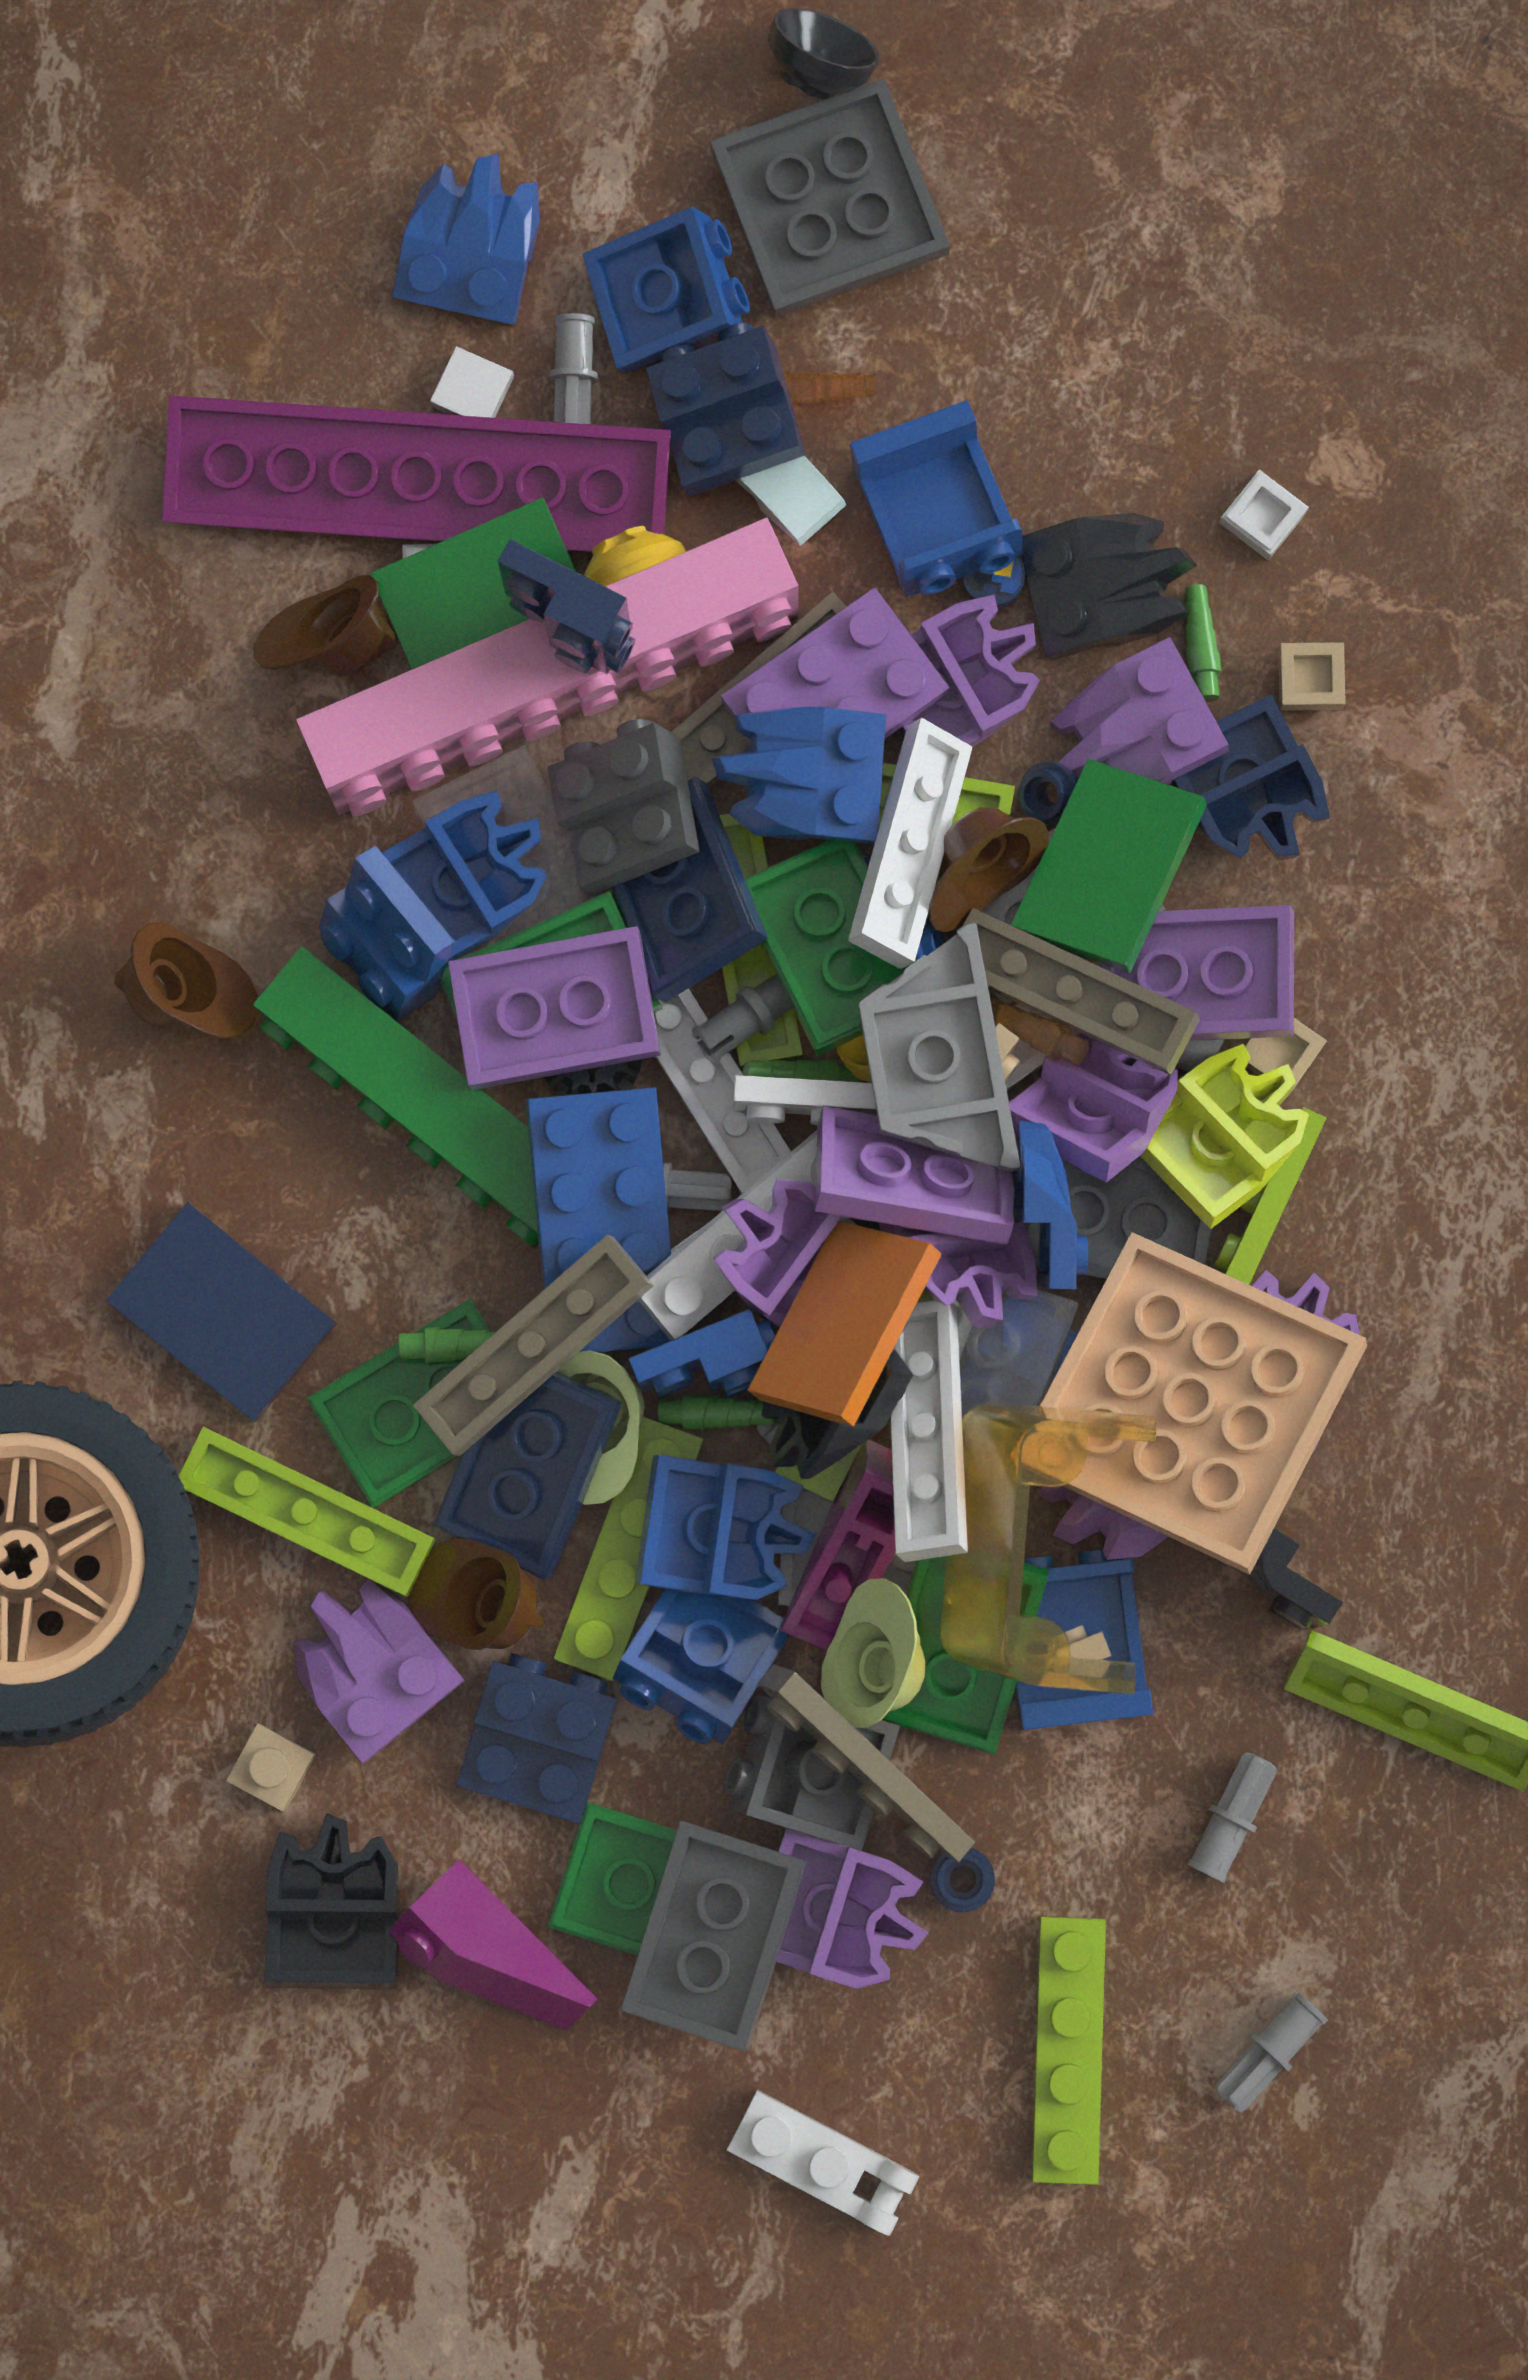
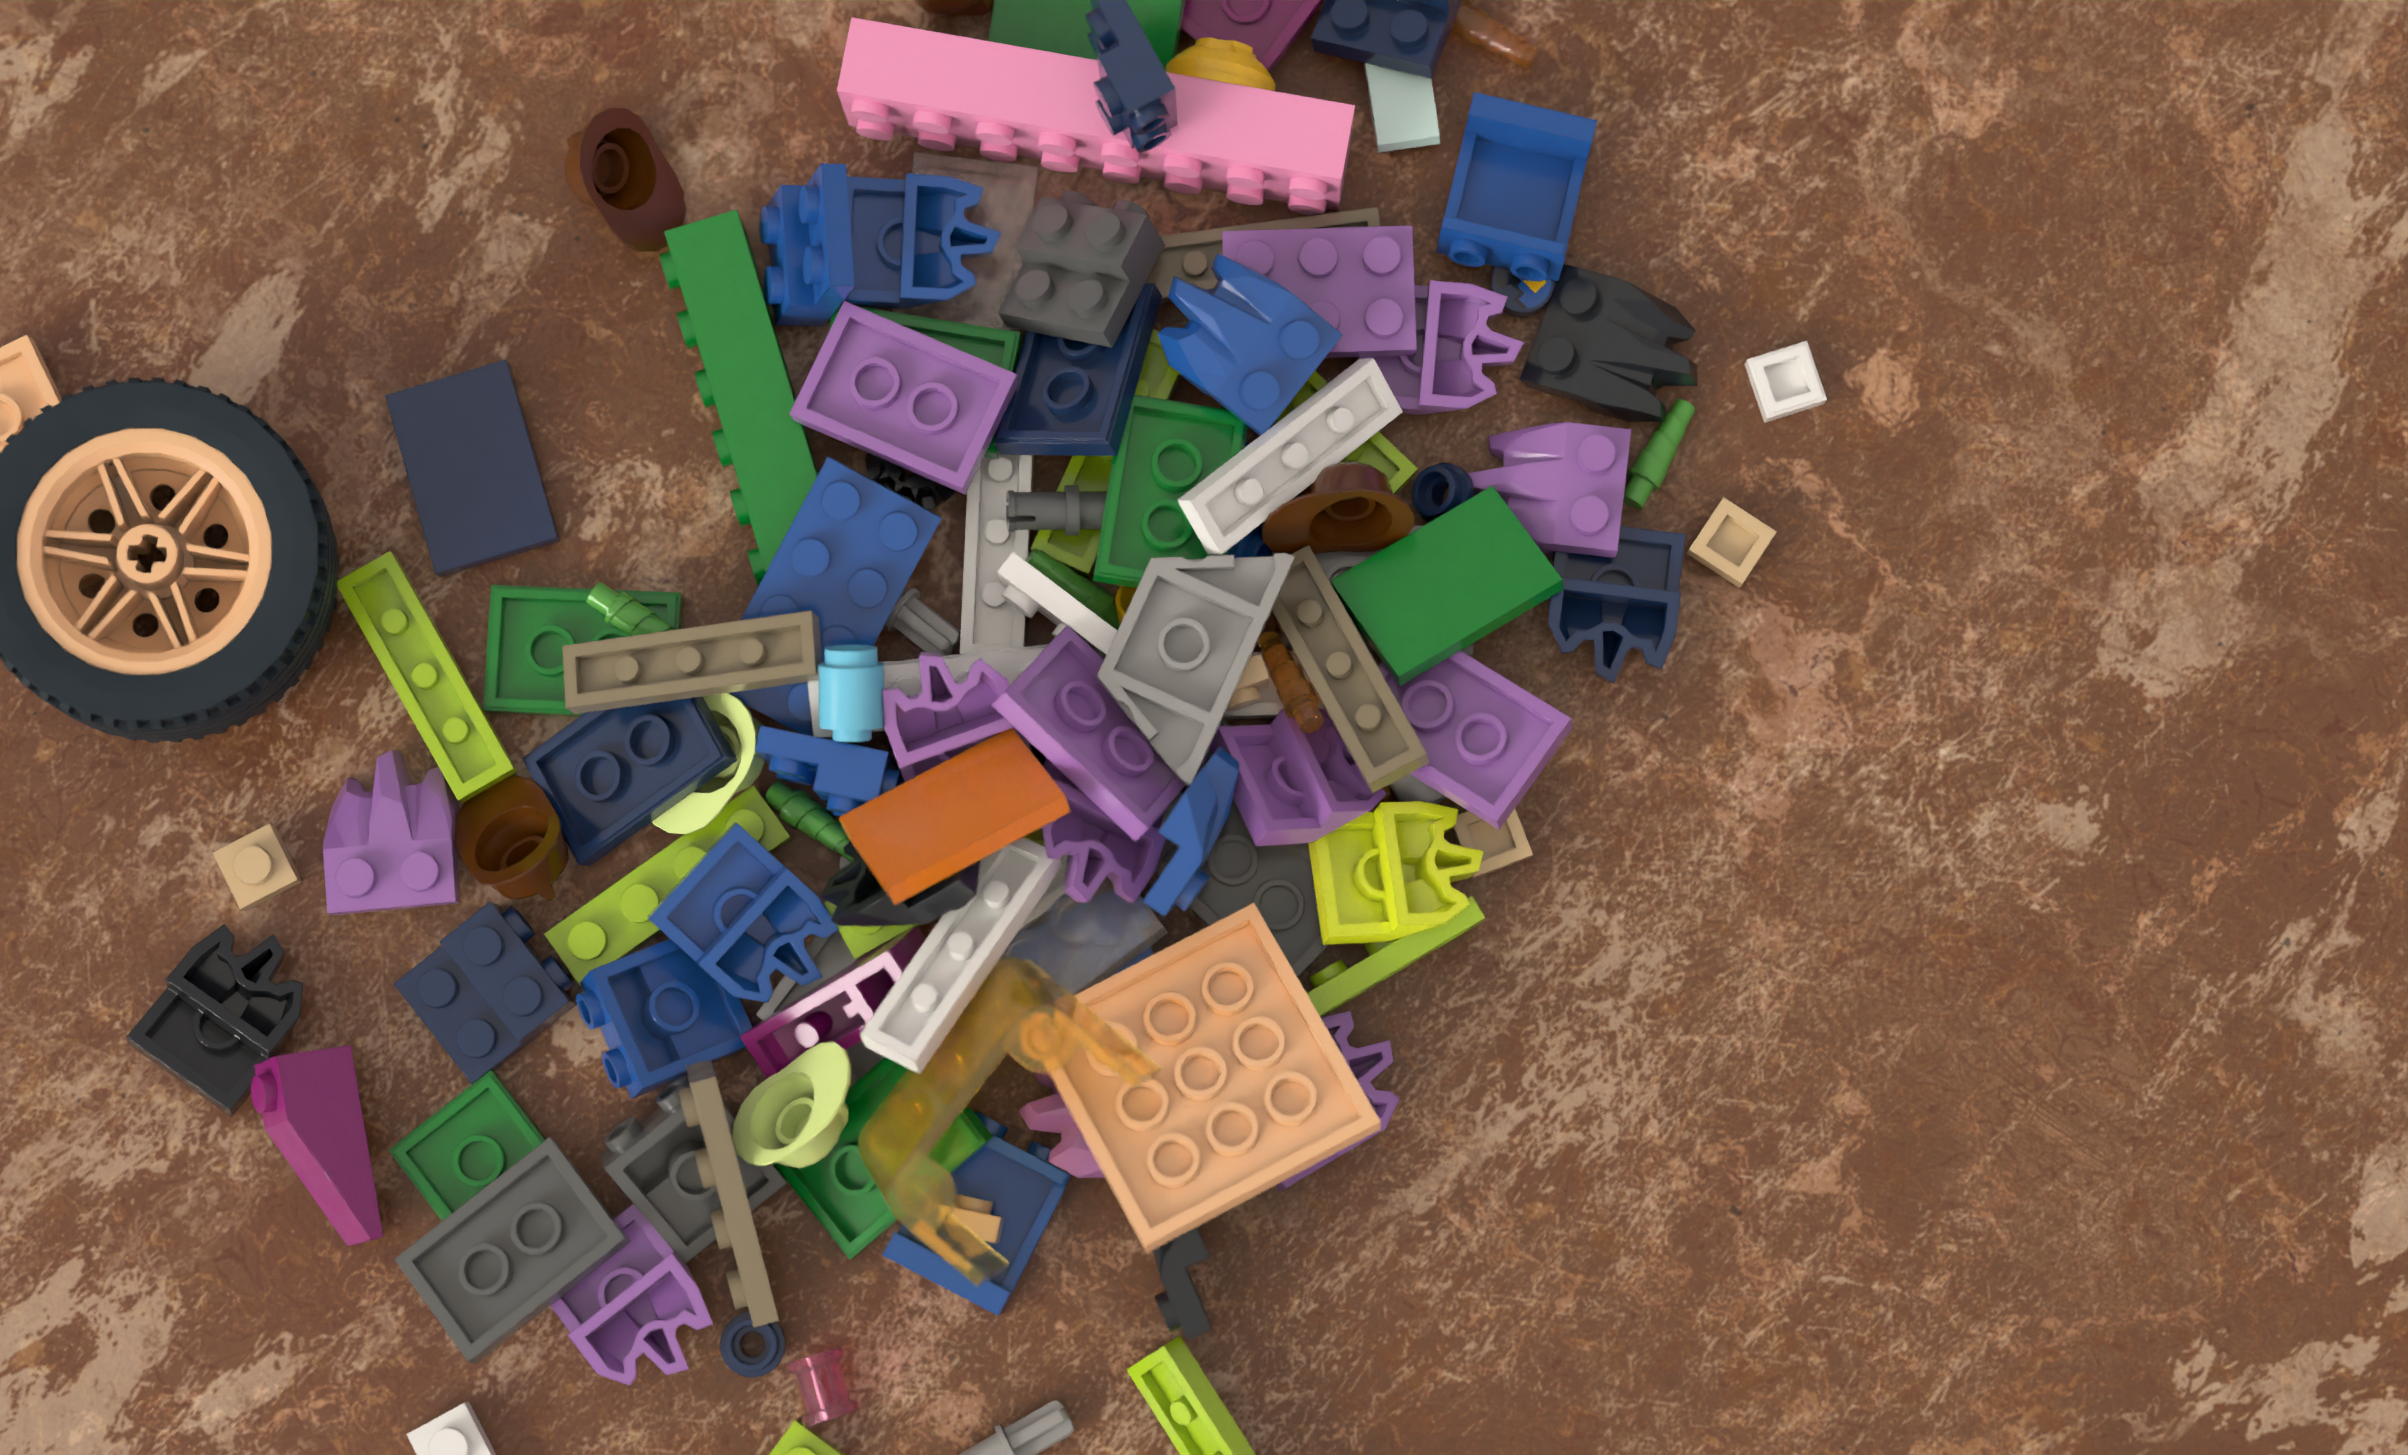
camera: 35 degrees right, 0 degrees up
(688, 1279) = (851, 692): none -> medium azure brick
(1045, 1873) = (823, 1386): none -> clear pink bush

